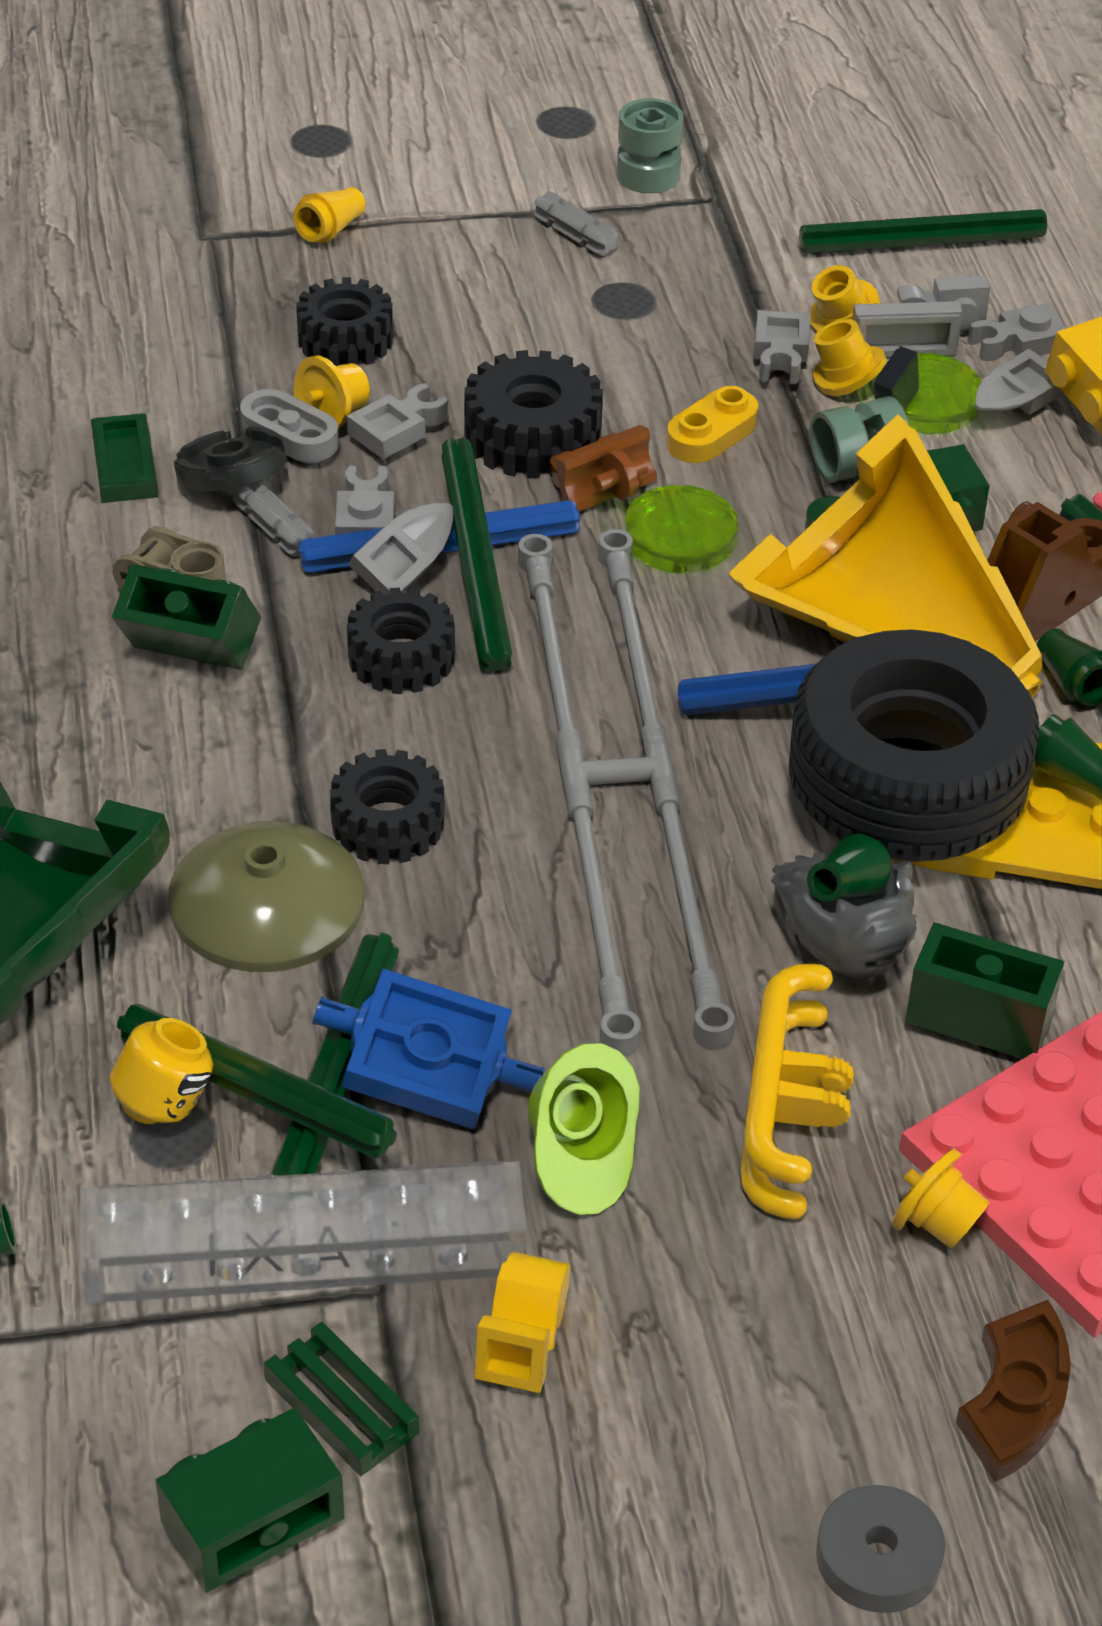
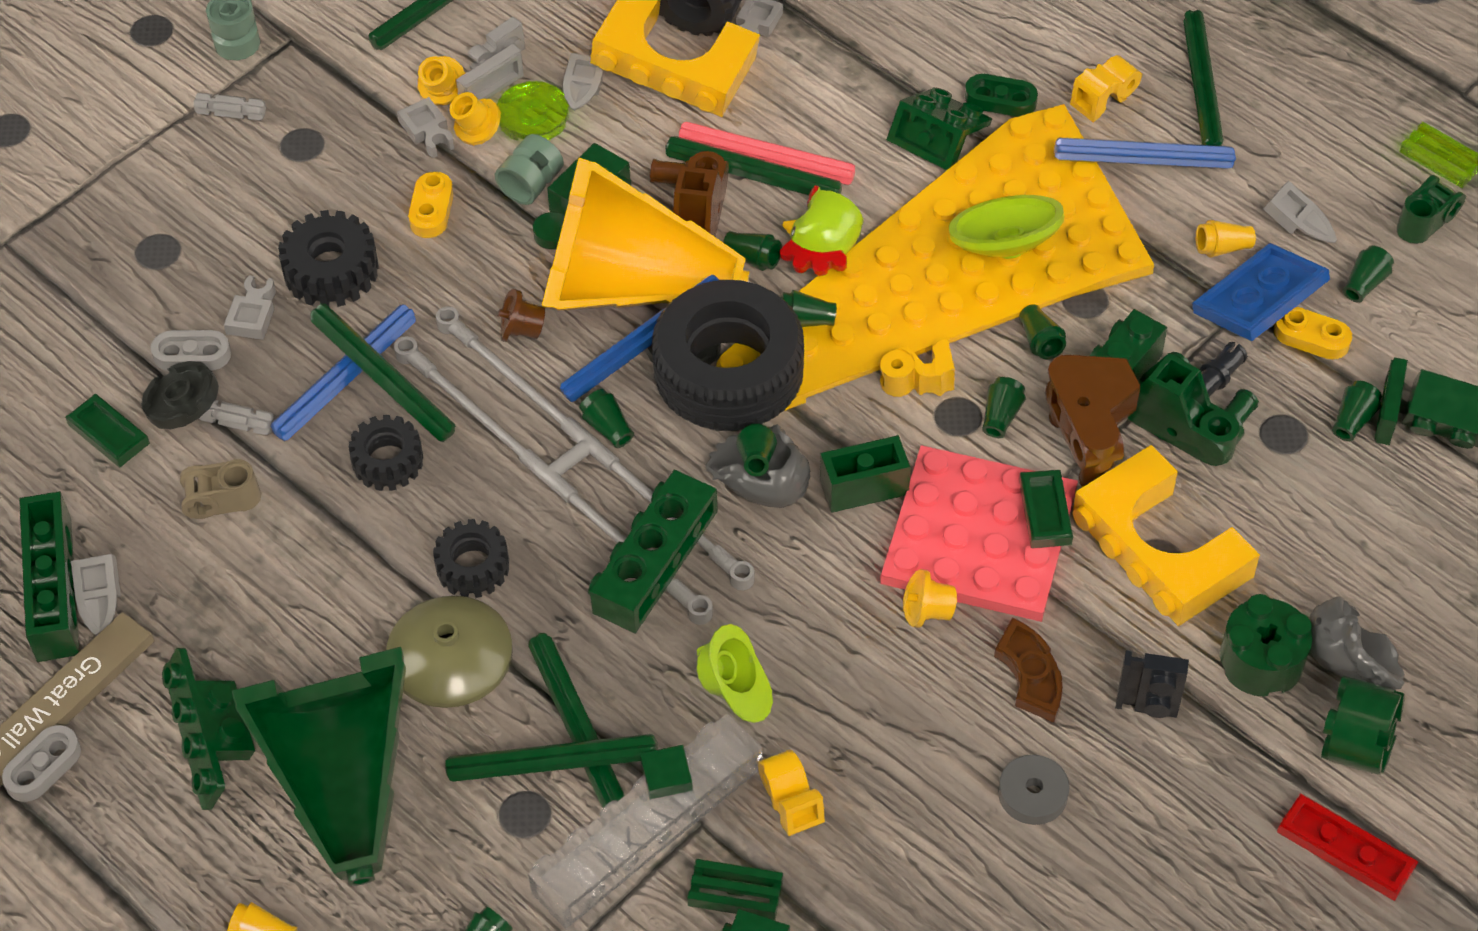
camera: 35 degrees left, 10 degrees up
(161, 1071) = (503, 785): yellow head -> none
(186, 616) = (260, 513): dark green brick -> none
(325, 214) = (73, 186): yellow cone -> none
(331, 387) = (197, 311): yellow piece -> none
(345, 321) = (155, 243): black tyre -> none
(364, 503) = (282, 381): light grey plate -> none
(366, 1177) = (666, 772): none -> dark green tile
(404, 547) = (339, 395): light grey plate -> none
(427, 1048) = (620, 682): blue plate -> none
(605, 468) = (404, 271): dark orange hips -> none
(611, 918) = (632, 601): none -> dark green brick
(681, 528) = (472, 284): clear neon green tile -> none
(697, 585) = (520, 317): none -> reddish brown piece
(705, 745) = (605, 416): none -> dark green cone
(790, 1090) = (809, 598): yellow piece -> none
(899, 377) = (523, 118): black tile -> none
(1016, 331) = (553, 37): light grey plate -> none

